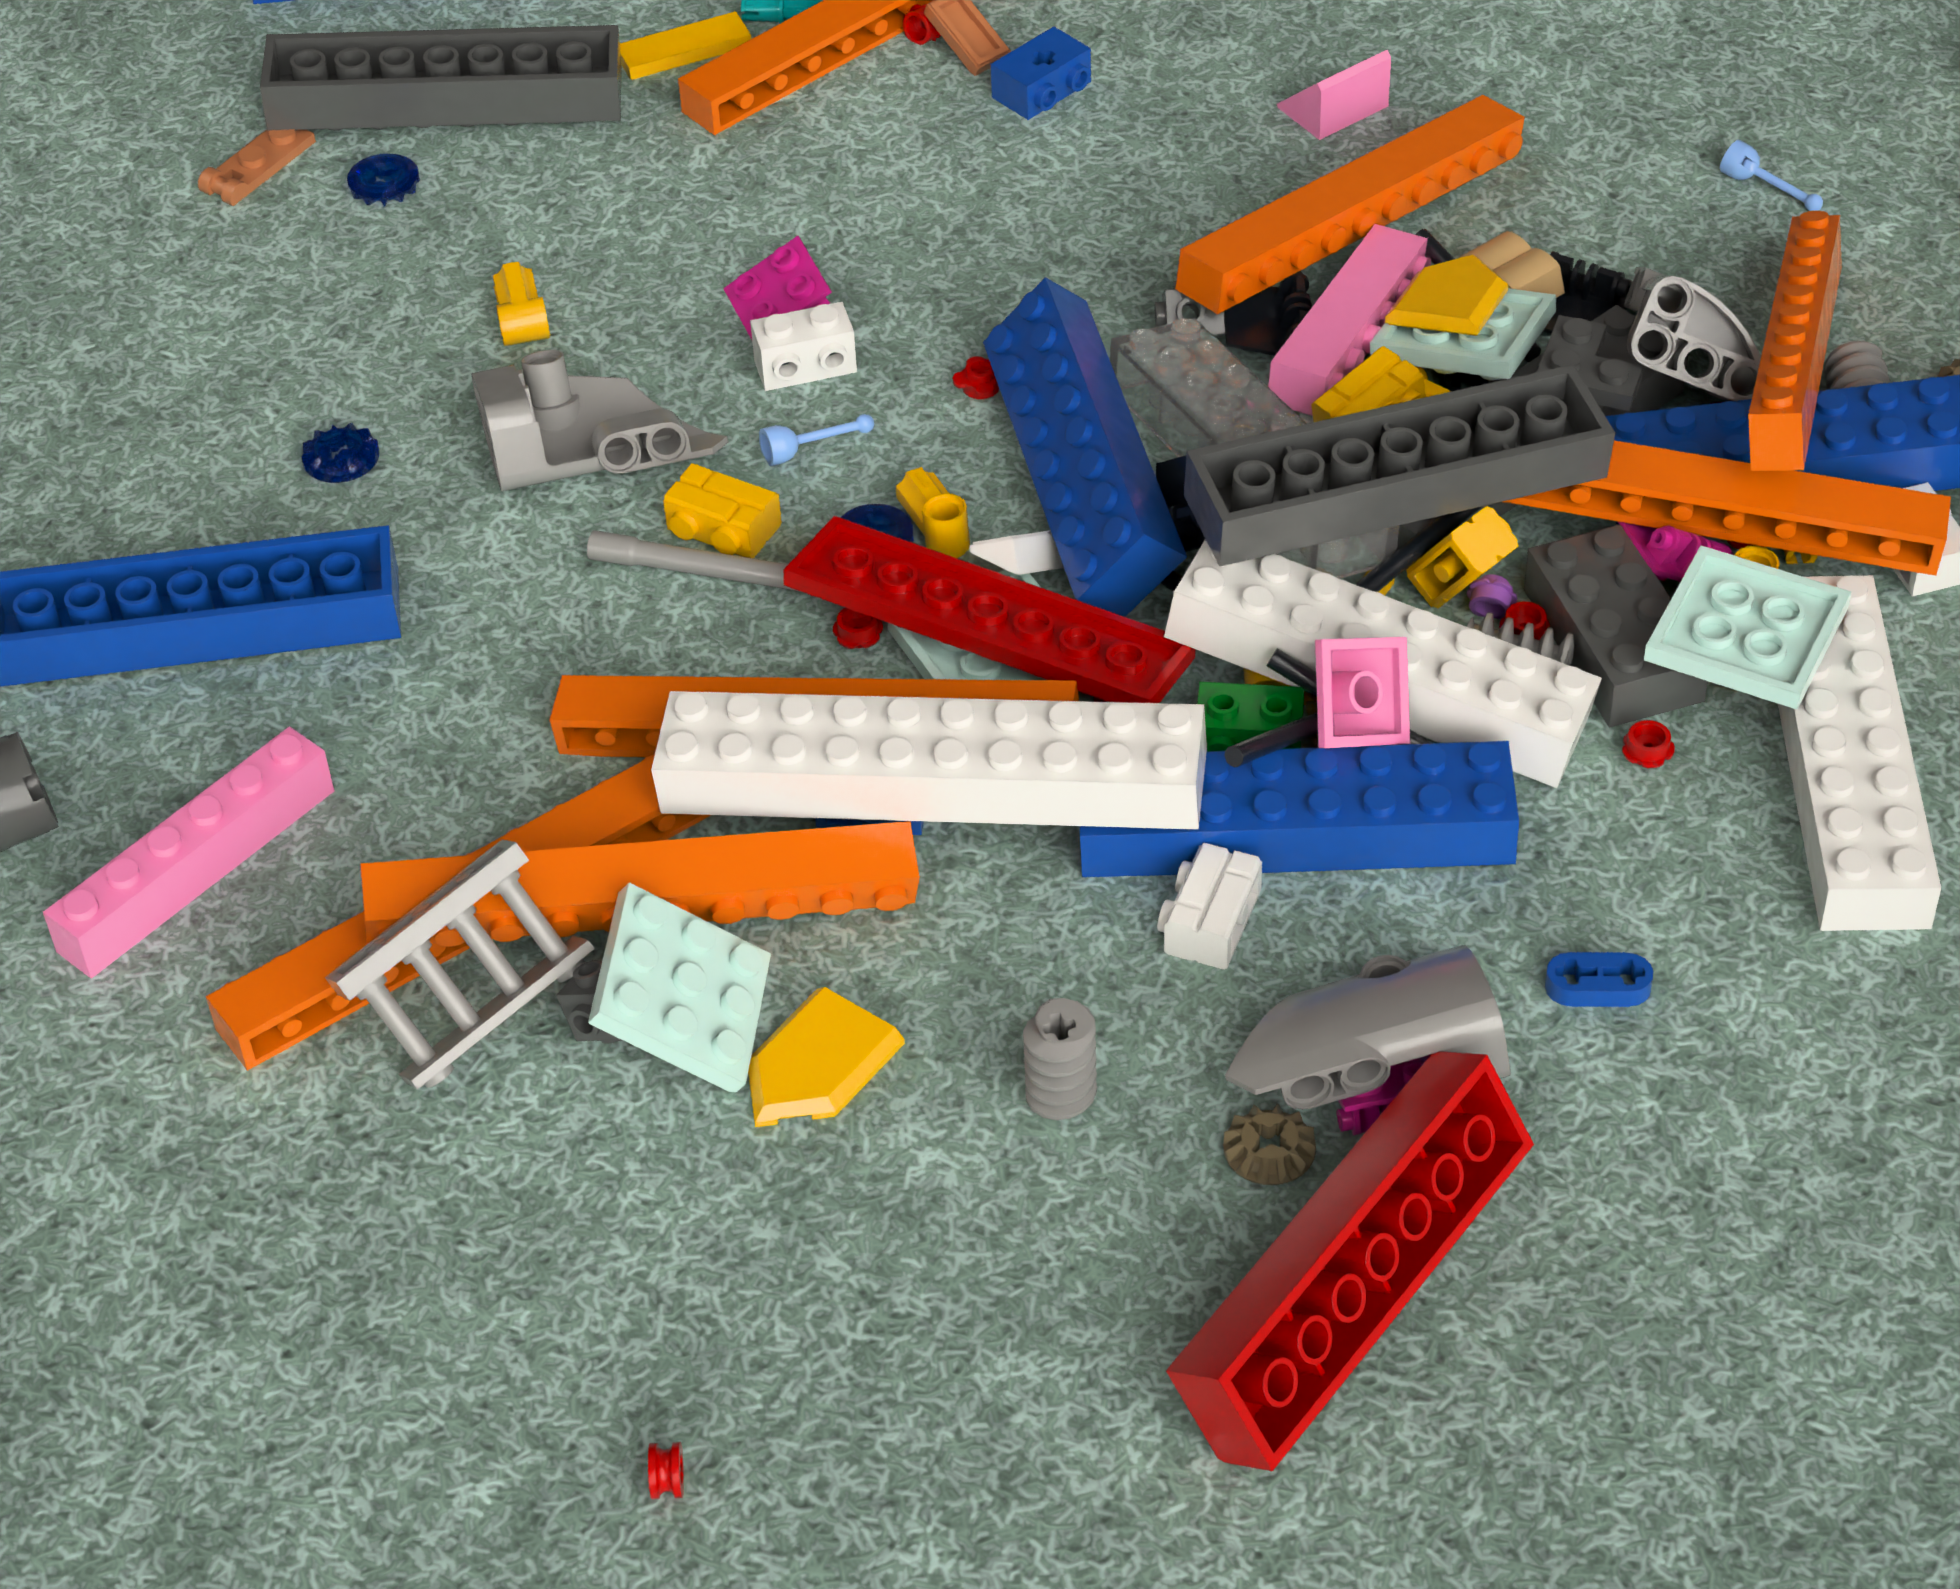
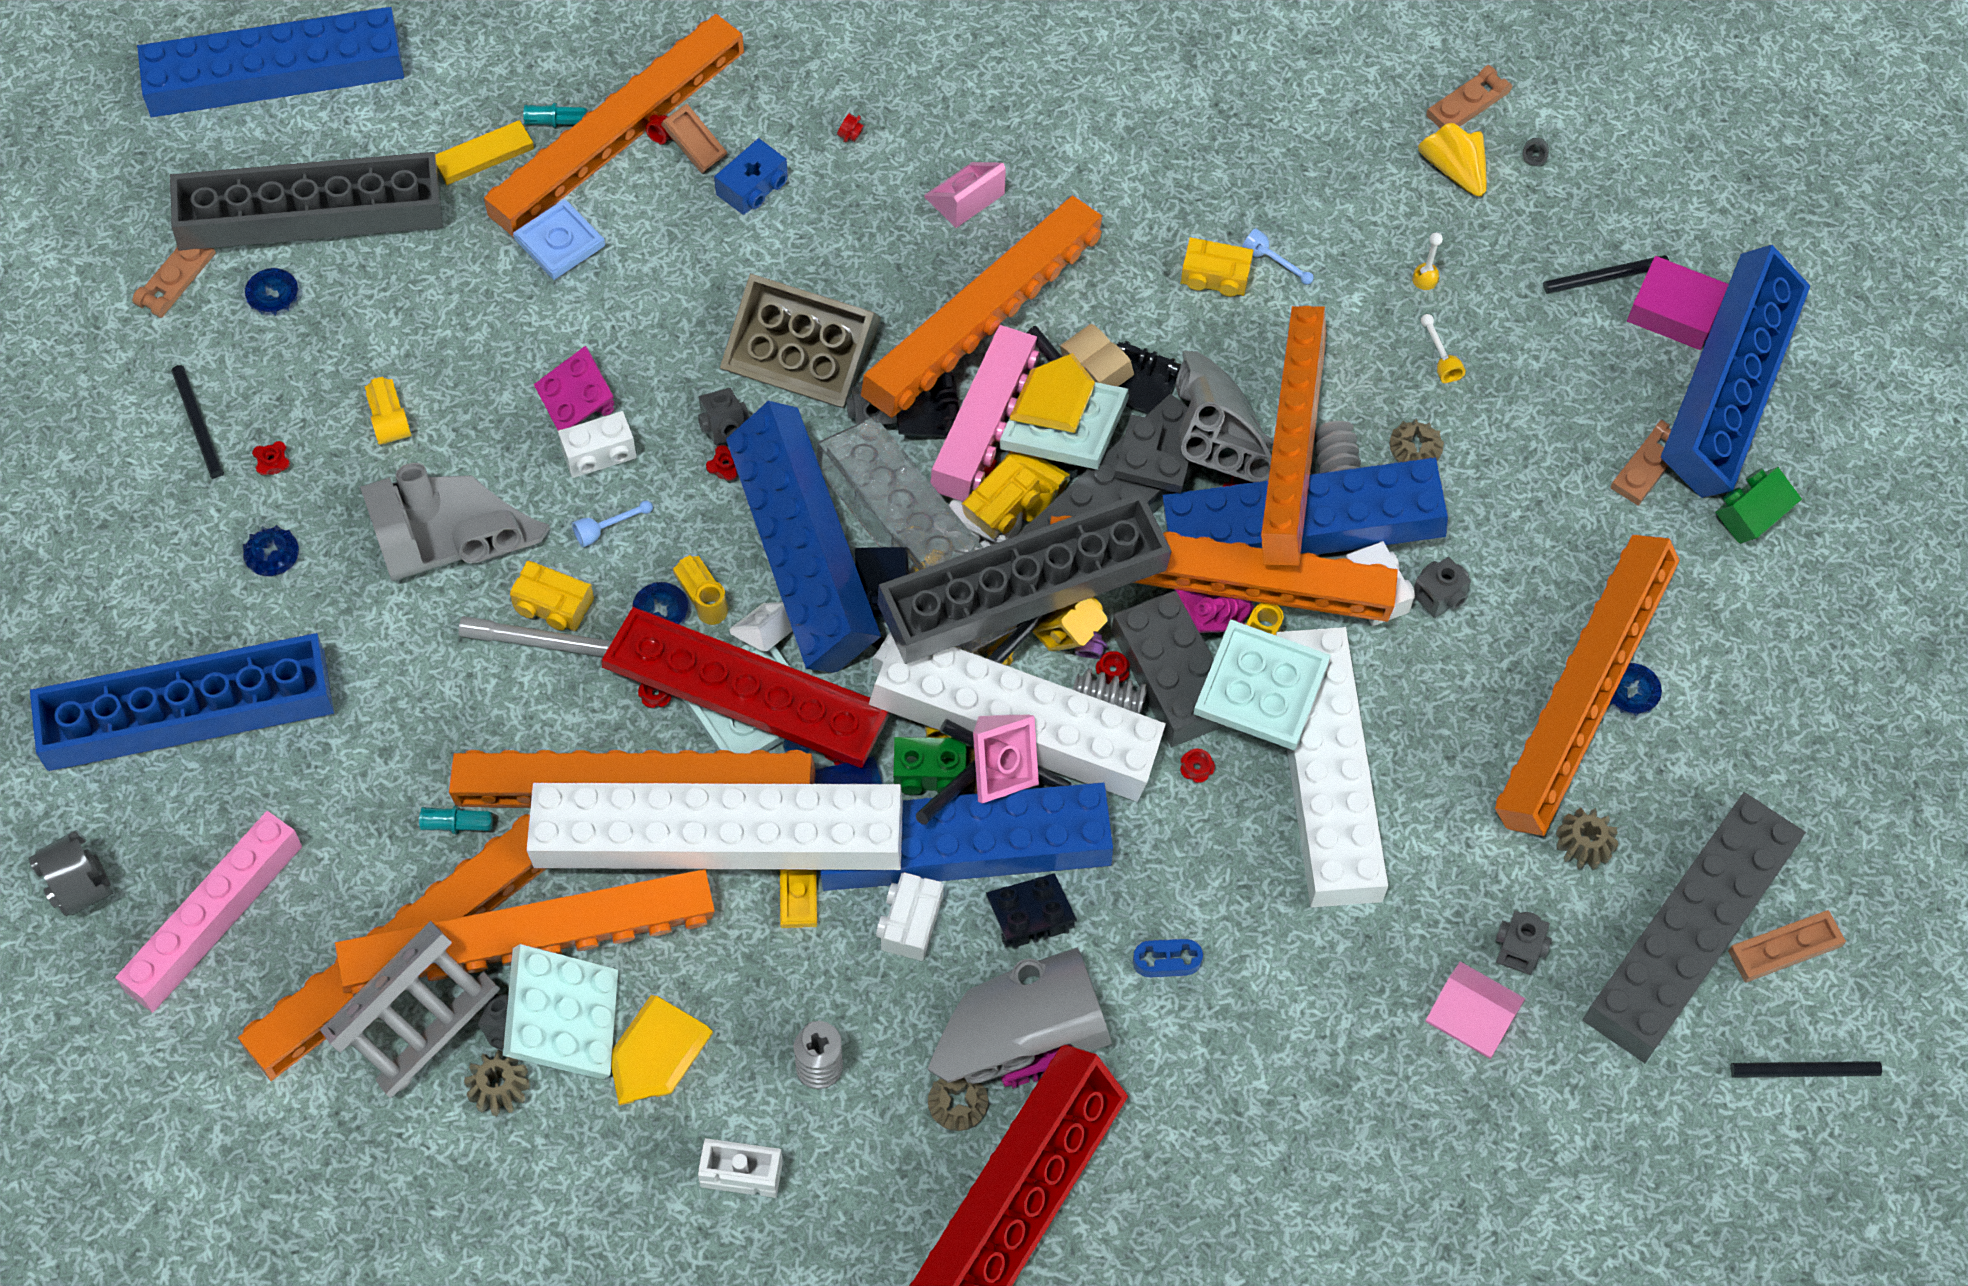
camera: 10 degrees left, 15 degrees up
(263, 313) = (197, 421): none -> black bar
(356, 353) = (272, 466): none -> red plate
(555, 763) = (455, 819): none -> teal axle
(577, 1081) = (492, 1069): none -> dark tan gear
(774, 133) = (559, 239): none -> light blue plate
(930, 1202) = (740, 1168): none -> white brick
(969, 313) = (721, 414): none -> dark grey brick
(1045, 872) = (798, 898): none -> yellow tile
(1095, 238) = (799, 340): none -> dark tan slope
(1180, 28) = (850, 128): none -> red plate
(1407, 900) = (1031, 909): none -> black hinge
(1685, 181) = (1216, 267): none -> yellow brick

